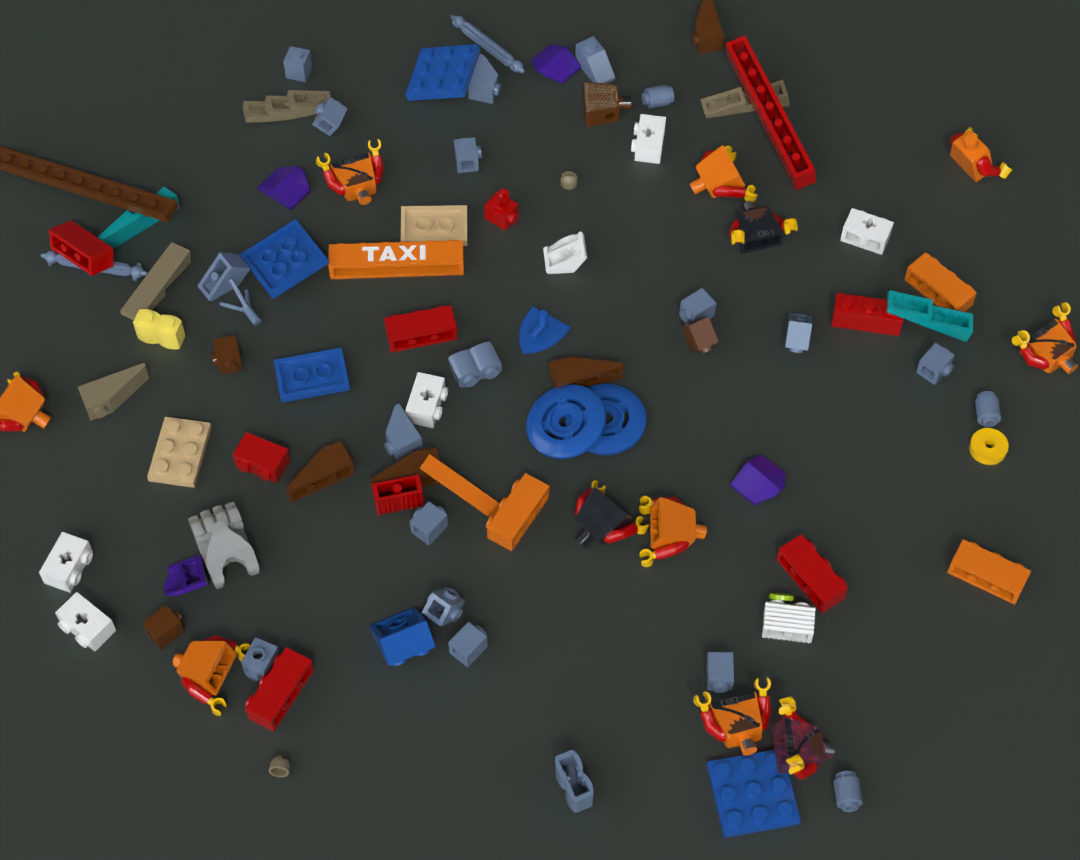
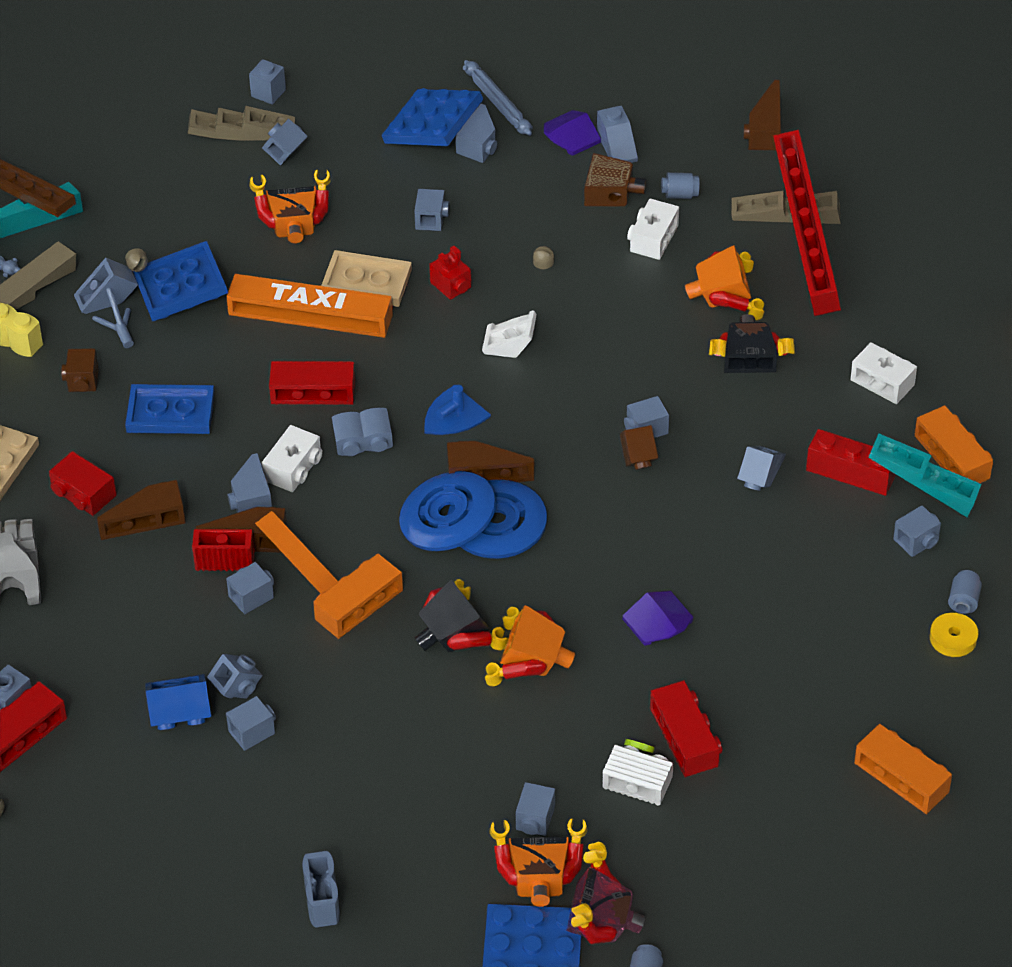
camera: 15 degrees right, 10 degrees down
(243, 247) = (133, 257): none -> dark tan hinge
(286, 186) = (211, 208): dark purple slope -> none

